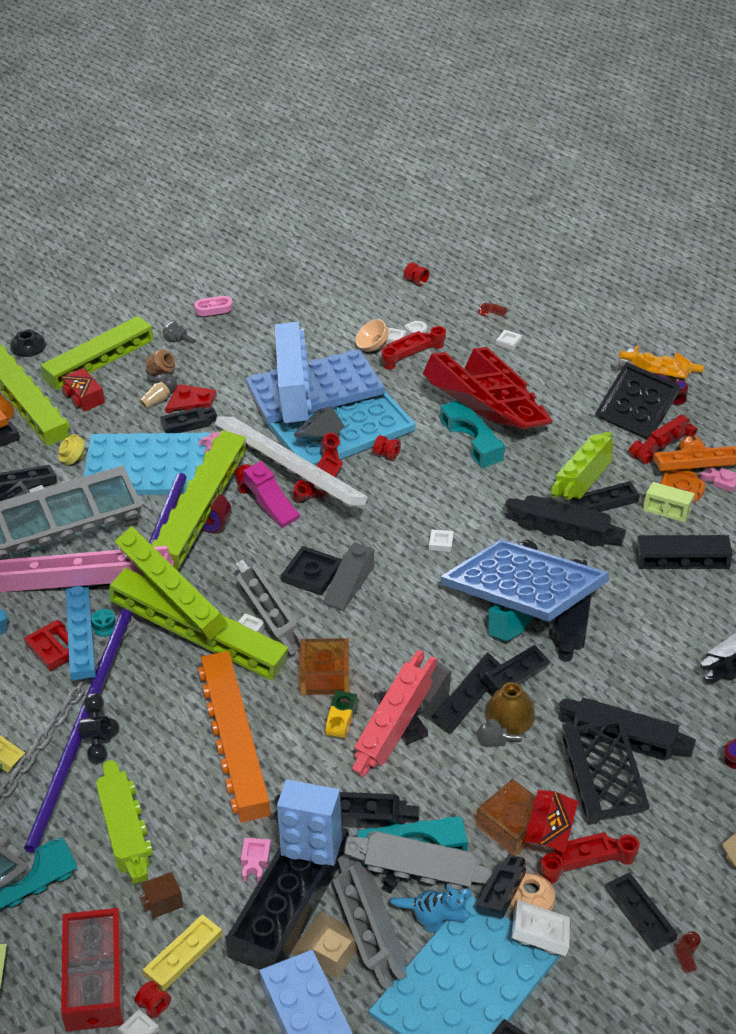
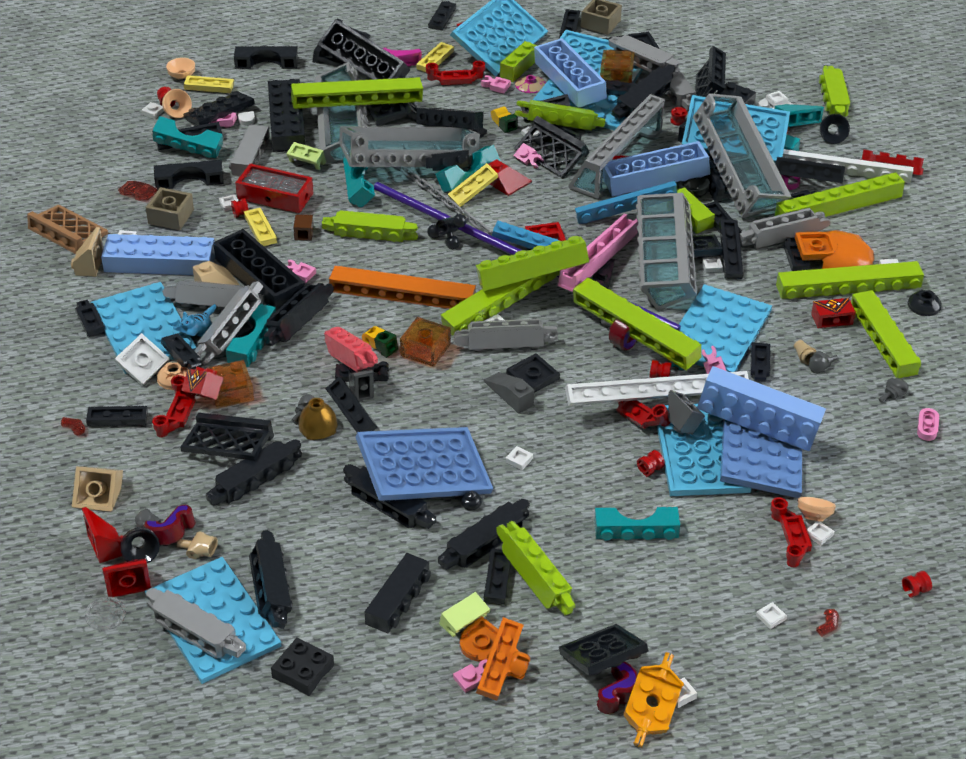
camera: 115 degrees right, 0 degrees up
(71, 449) = (753, 288): light yellow plate -> none
(160, 363) = (844, 361): medium nougat head -> none
(190, 397) = (793, 374): red wing -> none
(269, 495) = (636, 364): dark pink slope -> none
(309, 822) = (272, 256): light blue brick -> none
(415, 326) = (823, 553): white tile -> none
(489, 389) = (660, 545): red wedge -> none
(517, 669) = (347, 432): black plate -> none
(661, 438) = (540, 636): red plate -> none

